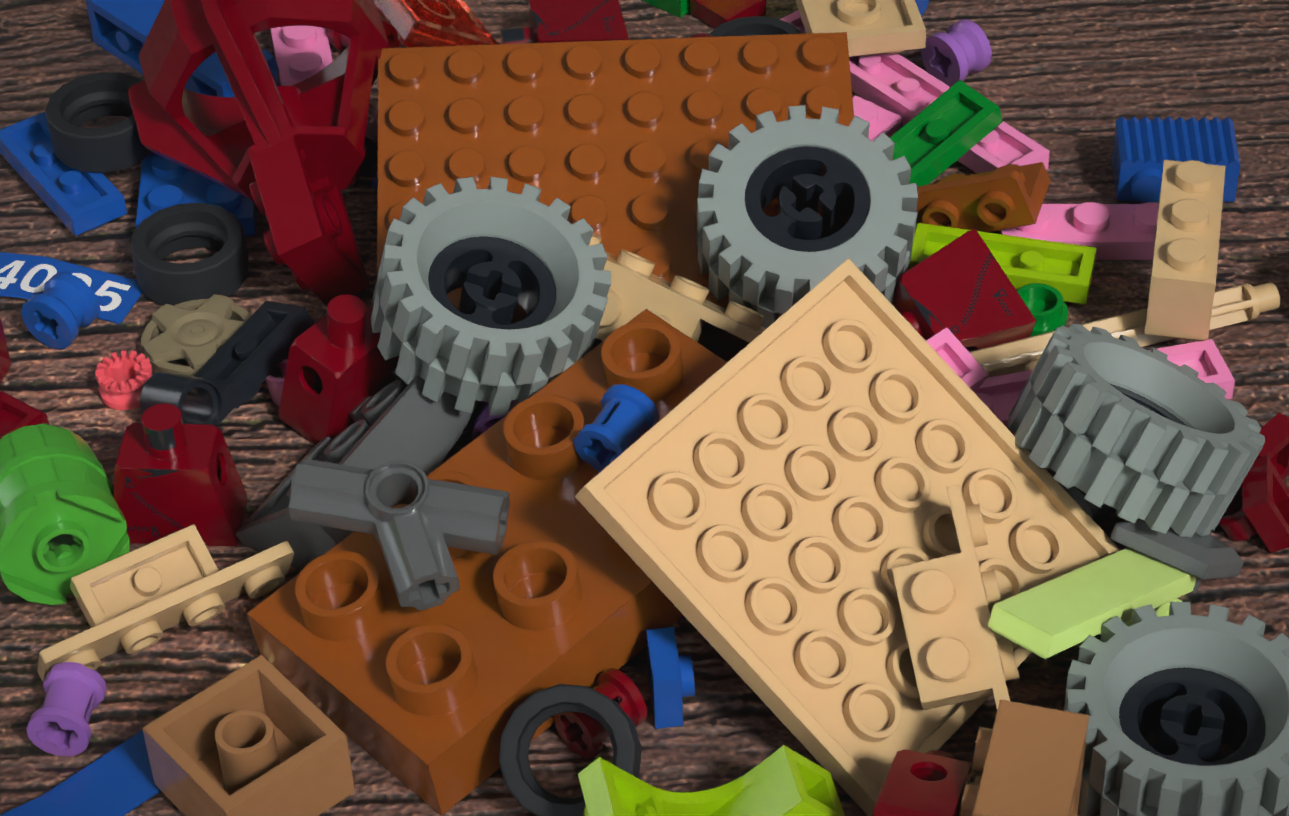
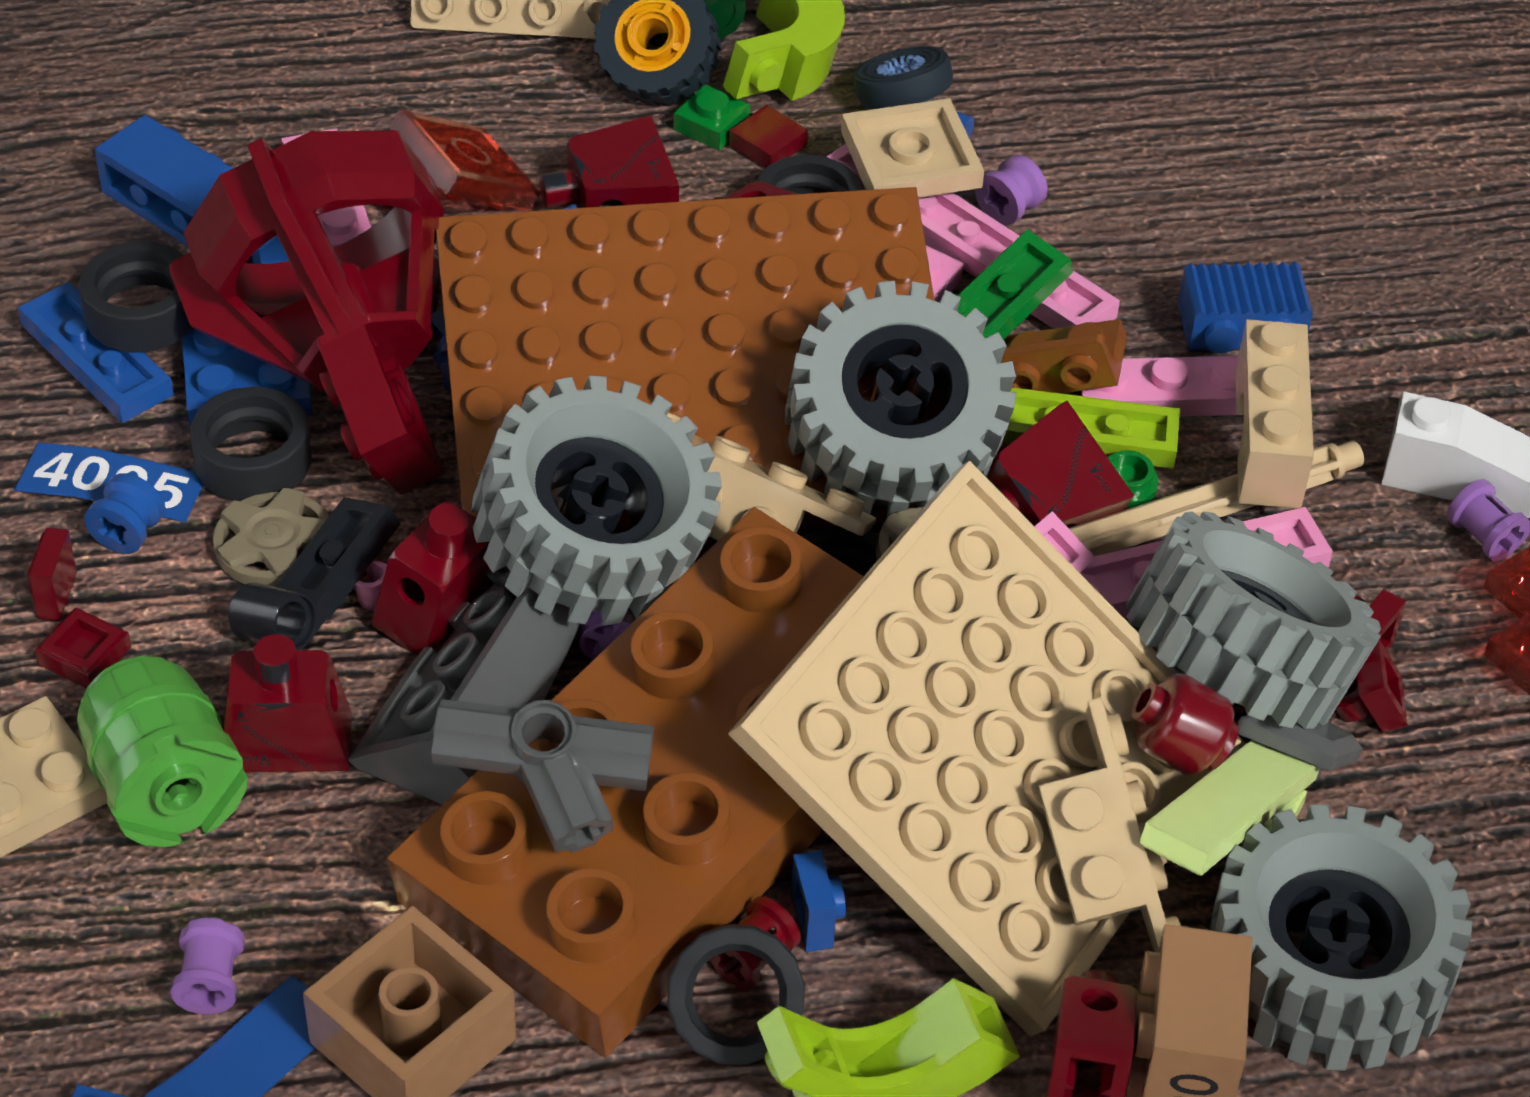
camera: 10 degrees left, 5 degrees up
(113, 375) = (189, 584): coral bush -> none
(156, 589) = (277, 827): tan bracket -> none
(619, 424) = (747, 646): blue bush -> none
(1050, 520) = (1185, 724): none -> dark red head

